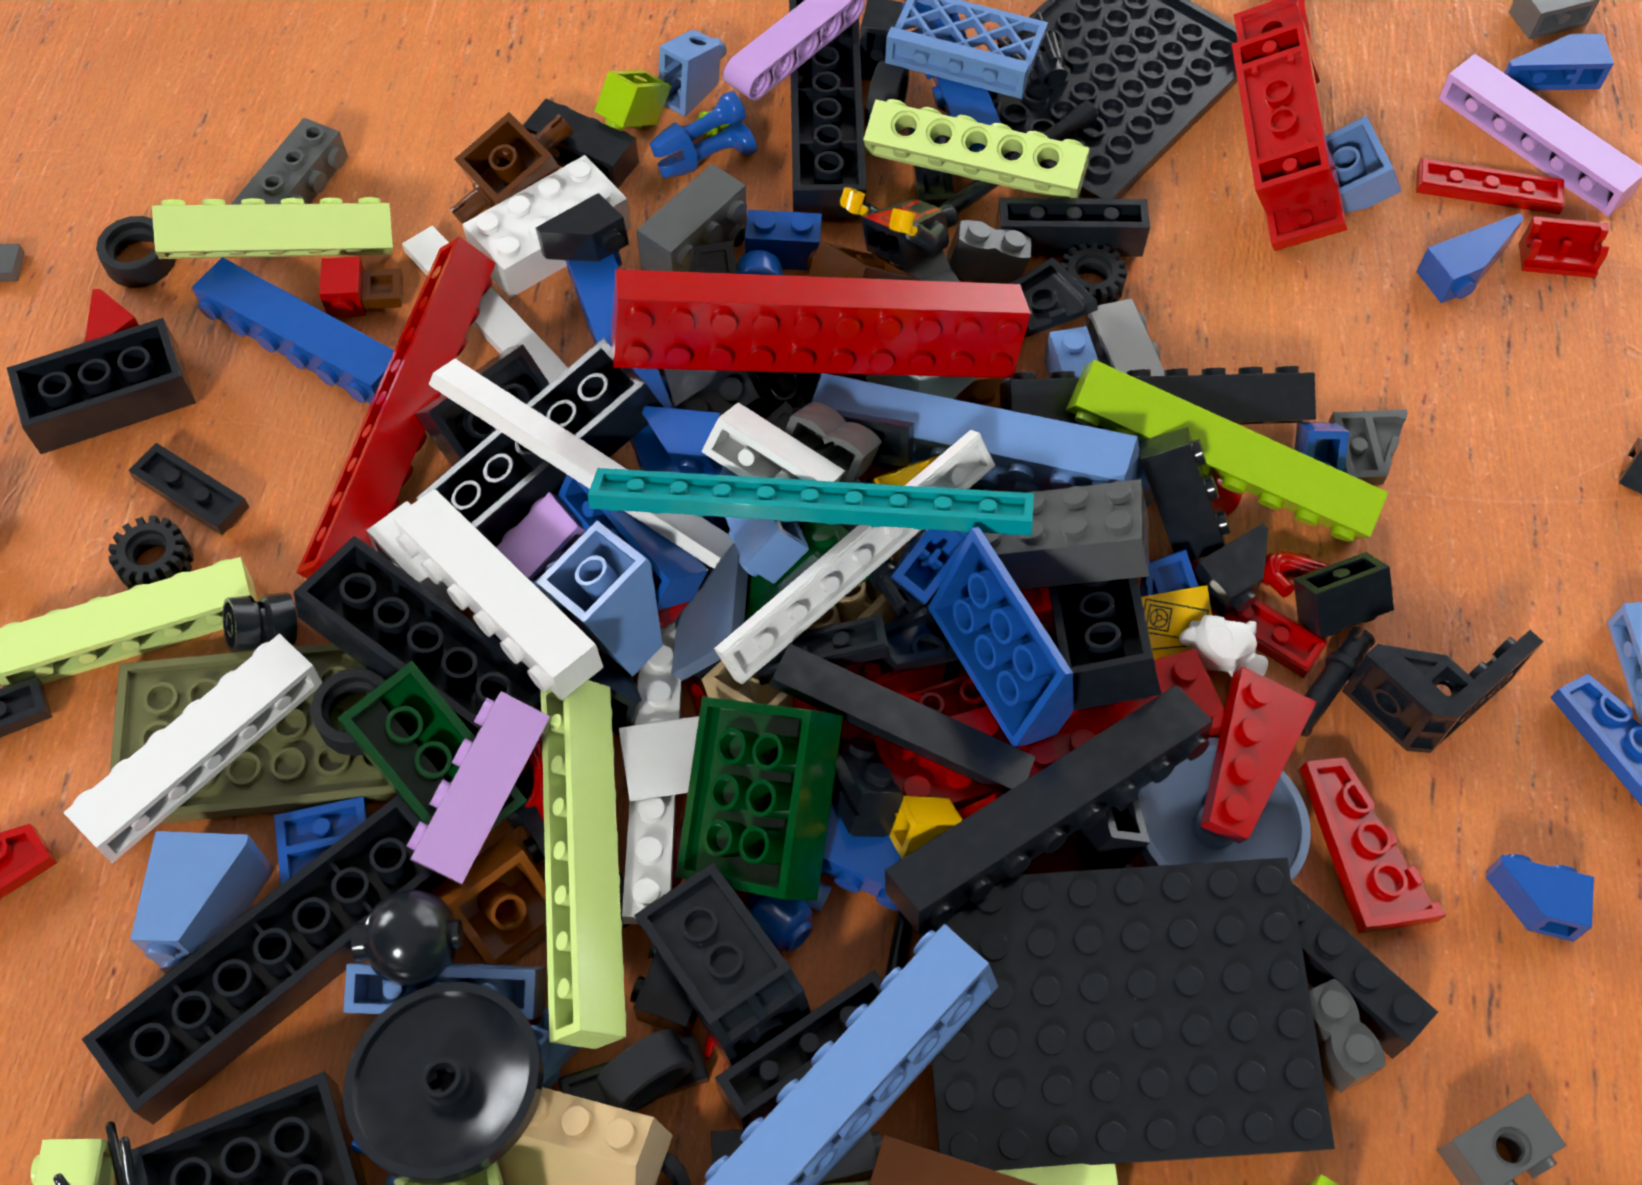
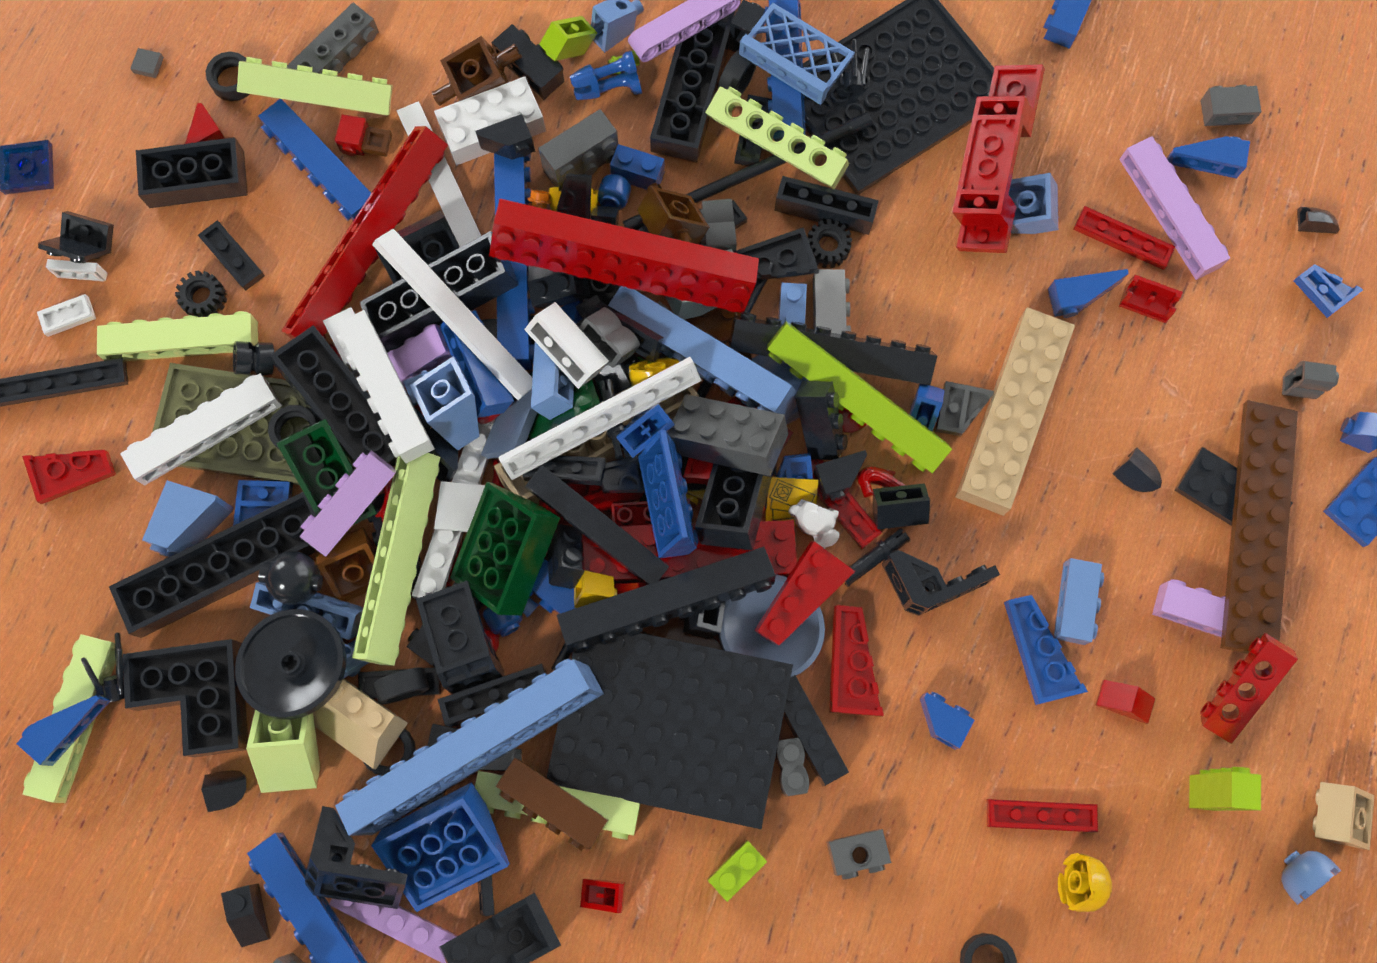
camera: 15 degrees right, 15 degrees up
(684, 436) = (520, 308): blue slope -> none
(812, 501) = (578, 383): teal plate -> none
(902, 231) = (710, 187): black torso -> none
(988, 253) = (762, 212): dark grey brick -> none
(1449, 435) = (1015, 412): none -> tan brick

